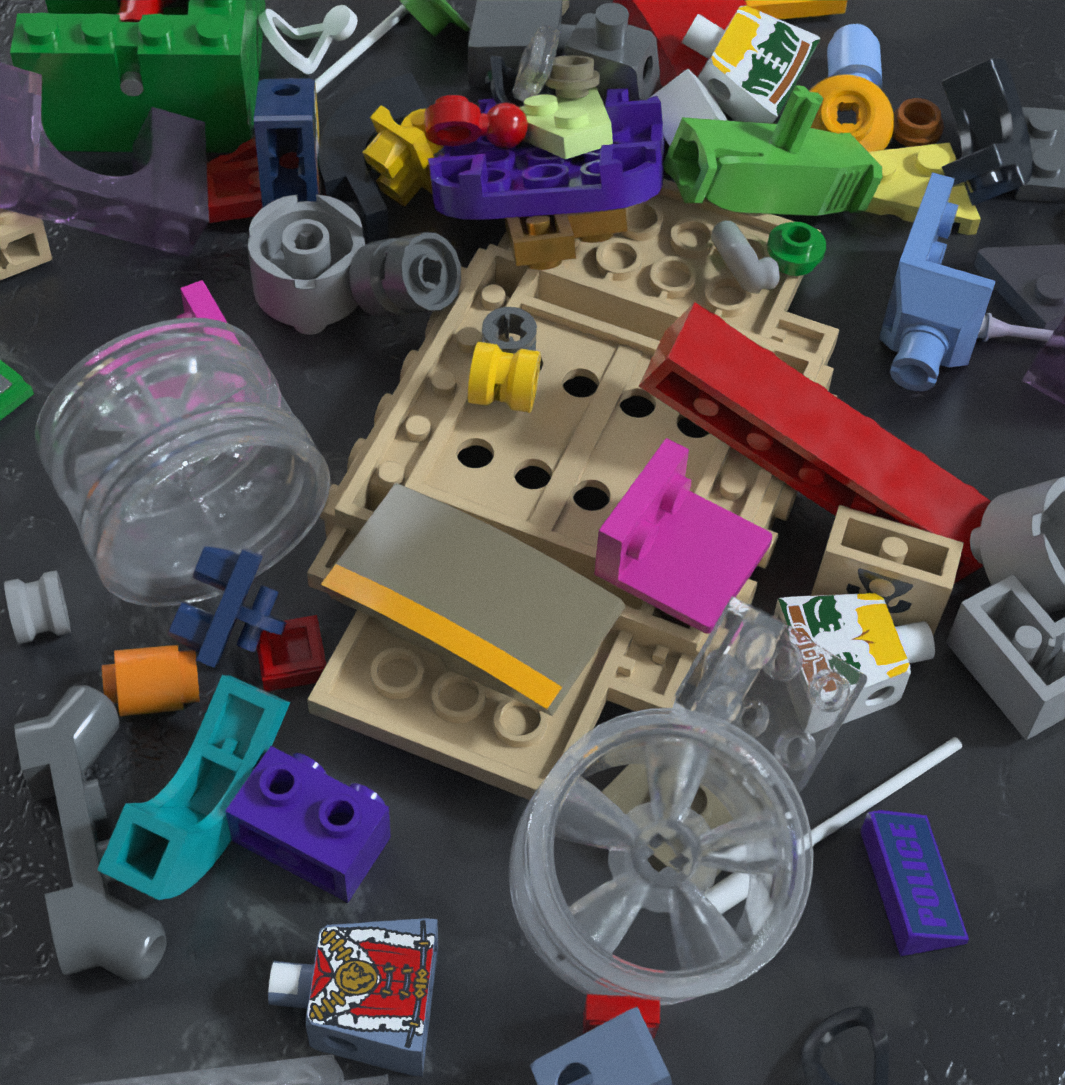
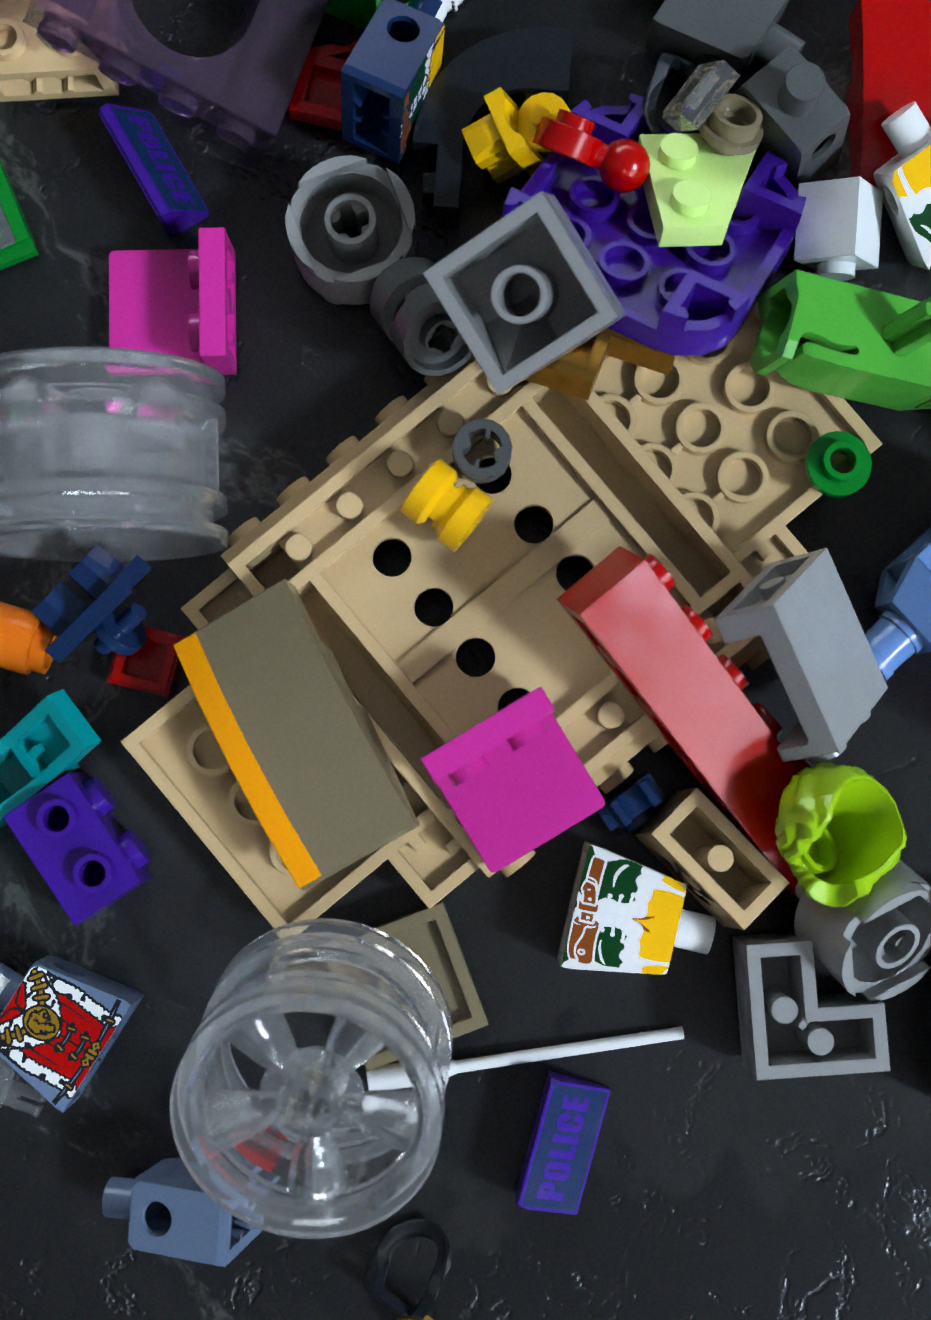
camera: 25 degrees right, 30 degrees up
(103, 294) = (155, 167): none -> slope
(488, 180) = (524, 292): none -> light grey slope
(742, 259) = (768, 453): light grey arm -> none
(772, 686) = (527, 940): clear bracket -> none
(791, 566) = (631, 804): none -> dark blue plate
(873, 348) = (815, 650): none -> light grey panel
(974, 463) = (838, 832): none -> lime hair

